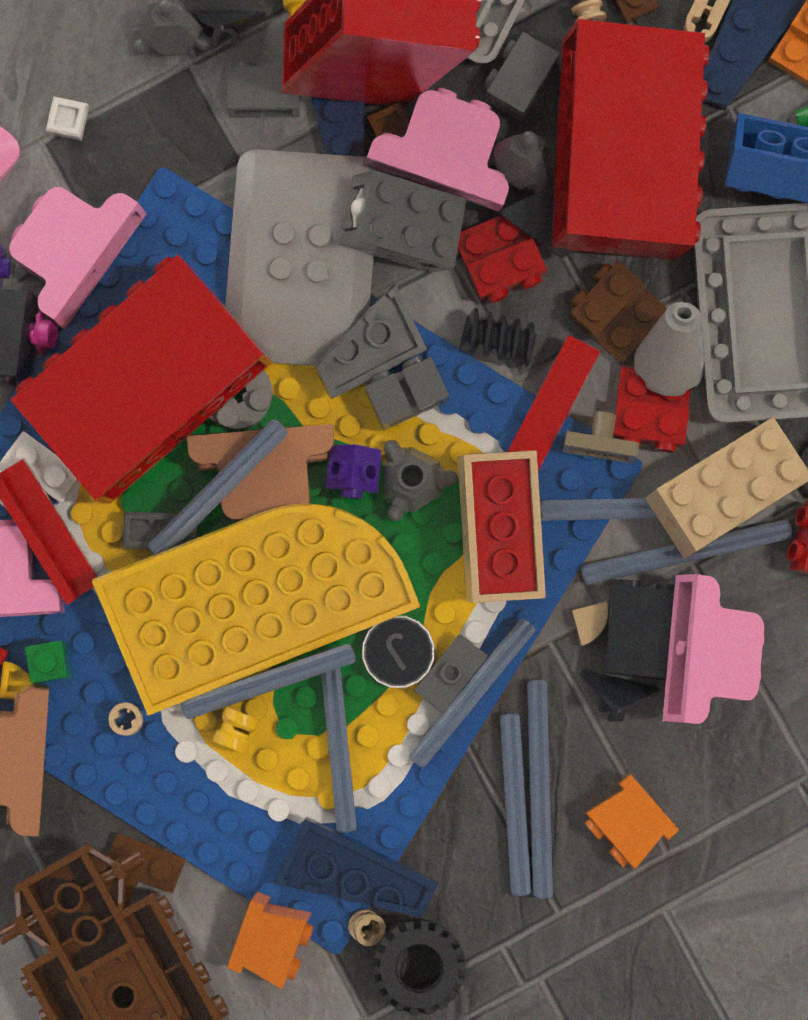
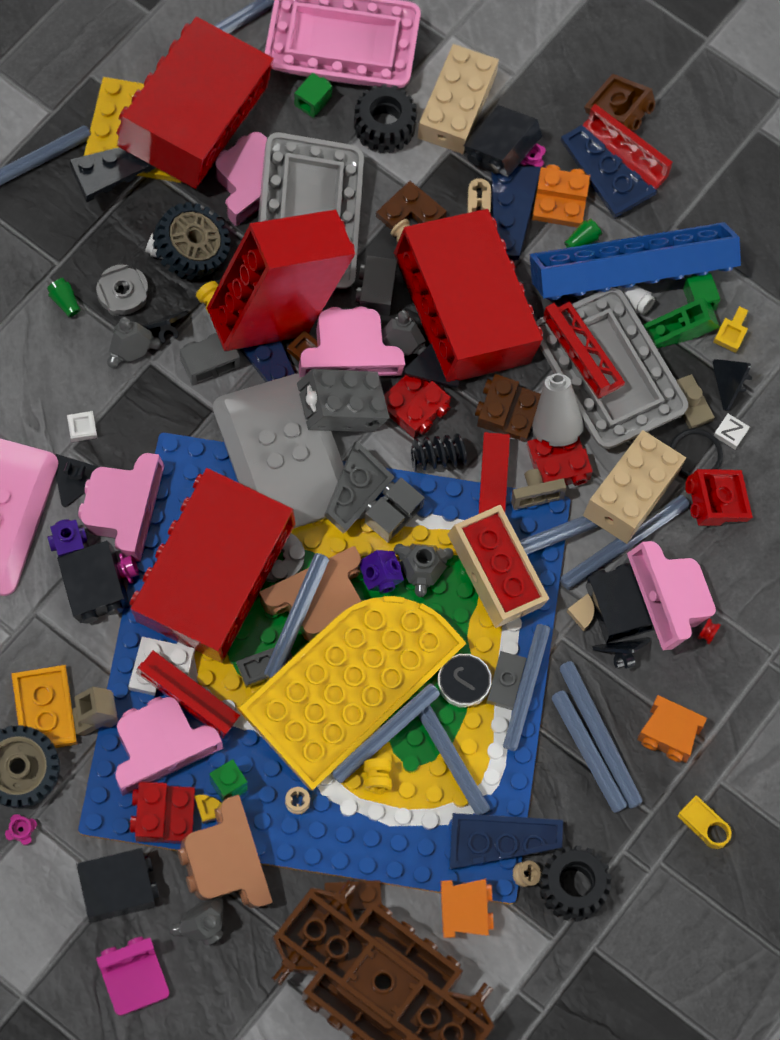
camera: 30 degrees left, 15 degrees down
(28, 181) = (72, 478): none -> black piece
(614, 948) = (700, 818): none -> yellow piece
(735, 275) = (579, 353): none -> red fence
(738, 715) = (709, 631): none -> red bush

